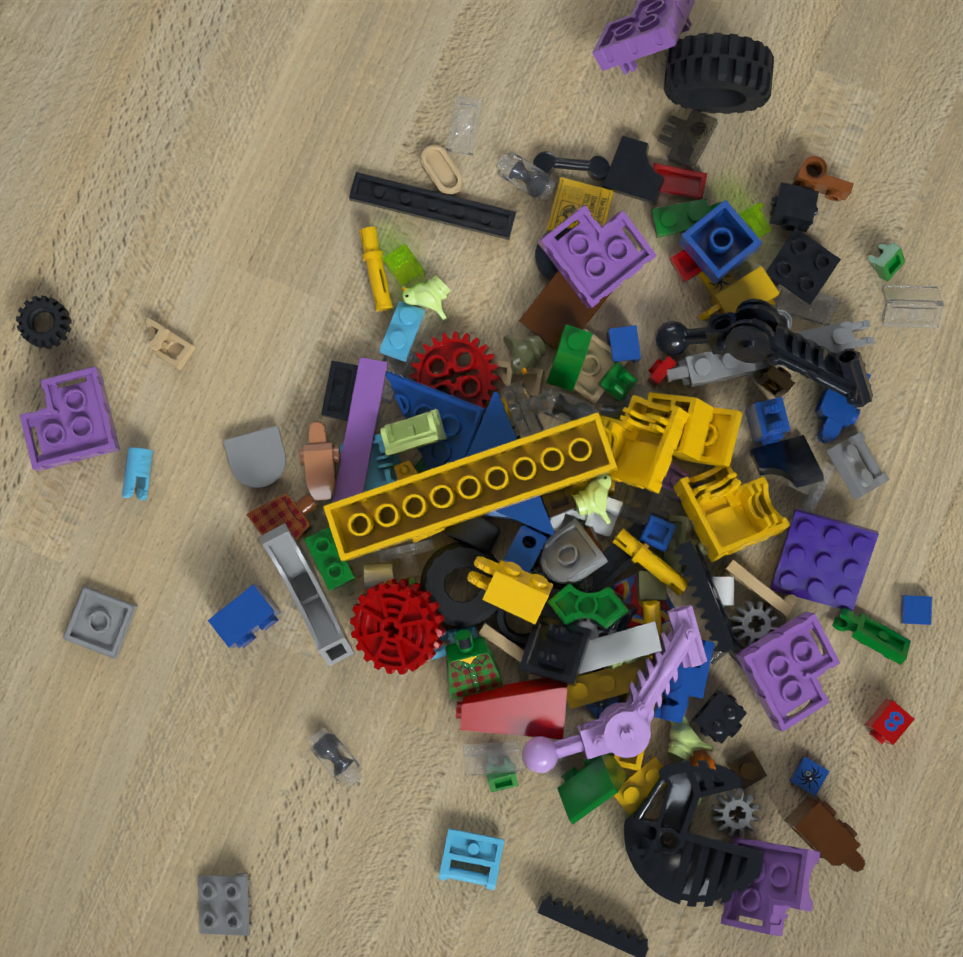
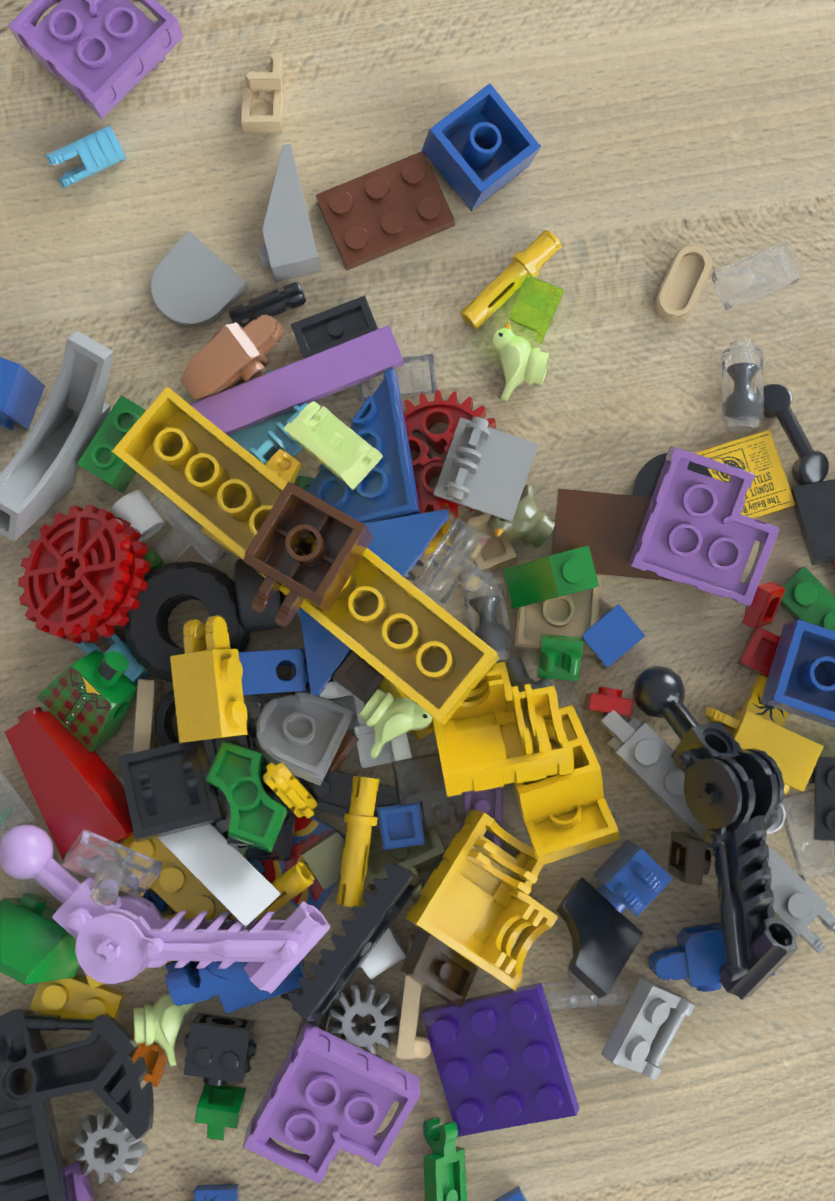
camera: 60 degrees right, 0 degrees up
(264, 381) = (286, 227): none -> light grey slope
(284, 316) = (385, 210): none -> copper plate
(284, 511) = (139, 359): dark orange torso -> none
(287, 236) = (480, 147): none -> blue brick
(298, 422) = (271, 303): none -> black axle
(402, 331) = (454, 357): medium azure plate -> none
(432, 206) = (632, 300): black tile -> none
(483, 354) = (485, 469): none -> light grey hinge
(494, 487) = (278, 555): none -> reddish brown hinge
(579, 709) = (111, 867): none -> clear tile
(599, 581) = (290, 790): none -> yellow axle
(660, 246) = (764, 605): none -> red tile
(748, 768) = (175, 1123): dark brown plate -> none
(752, 560) = (439, 968): none -> dark brown plate
(753, 737) = (220, 1108): none -> green tile

